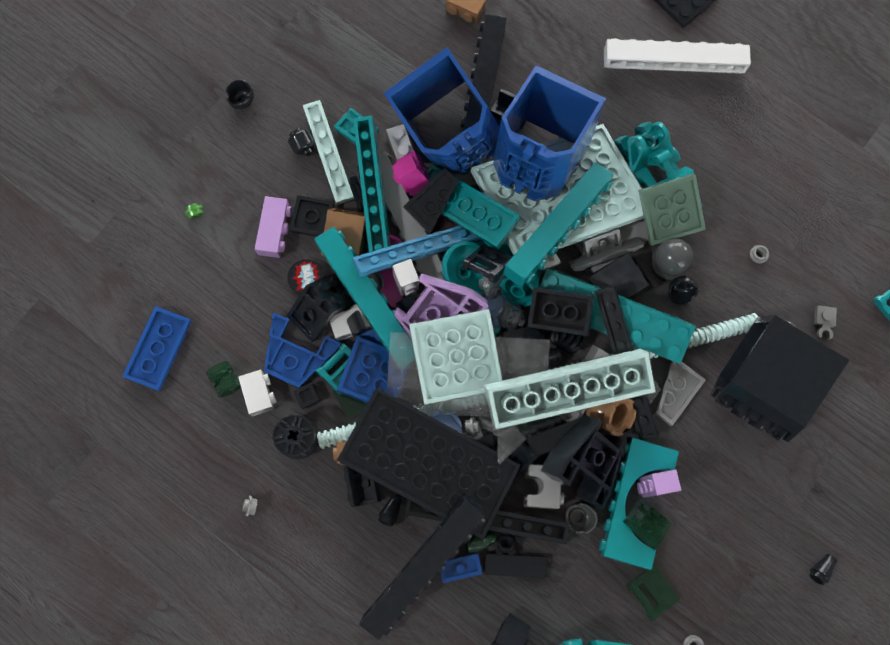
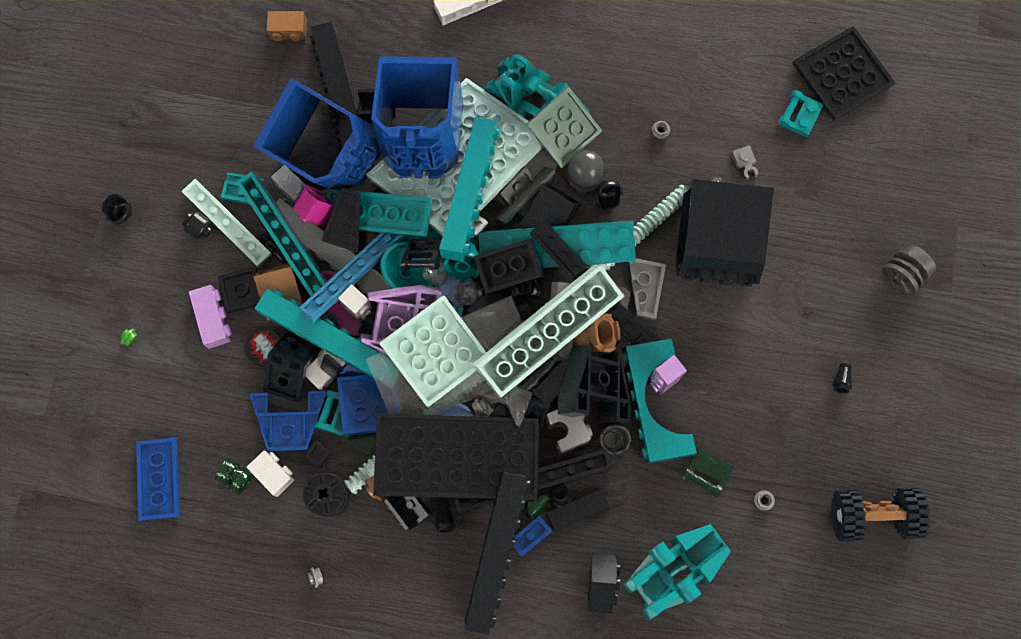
camera: 20 degrees left, 0 degrees up
(647, 523) = (674, 414): clear green plate -> none

